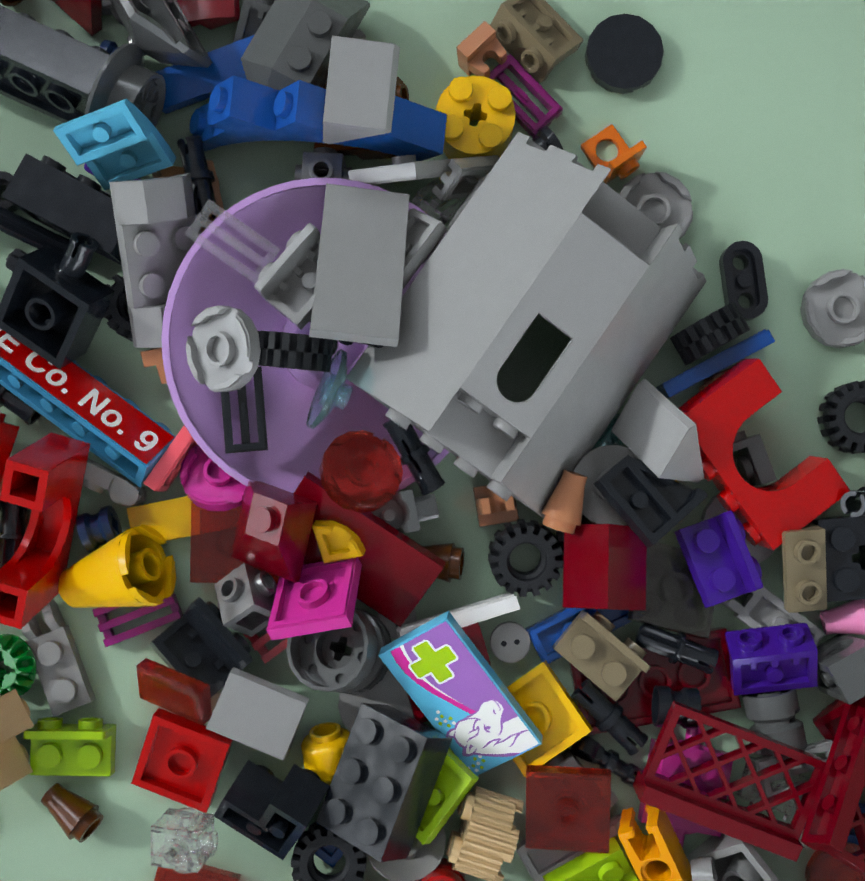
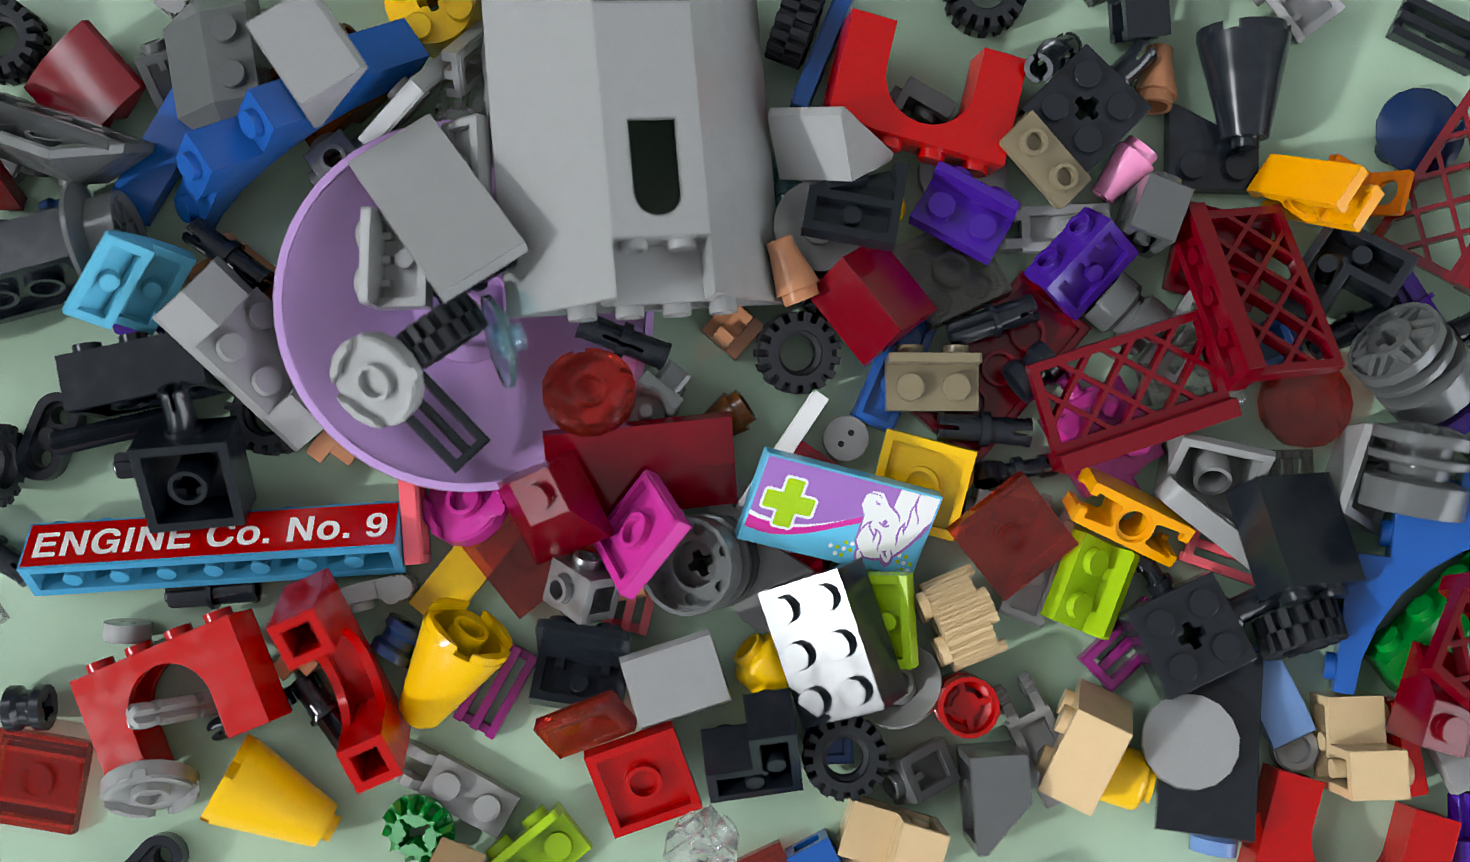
camera: 40 degrees left, 0 degrees up
(203, 221) = (264, 283): clear tile -> none
(337, 541) = (619, 470): yellow tile -> none

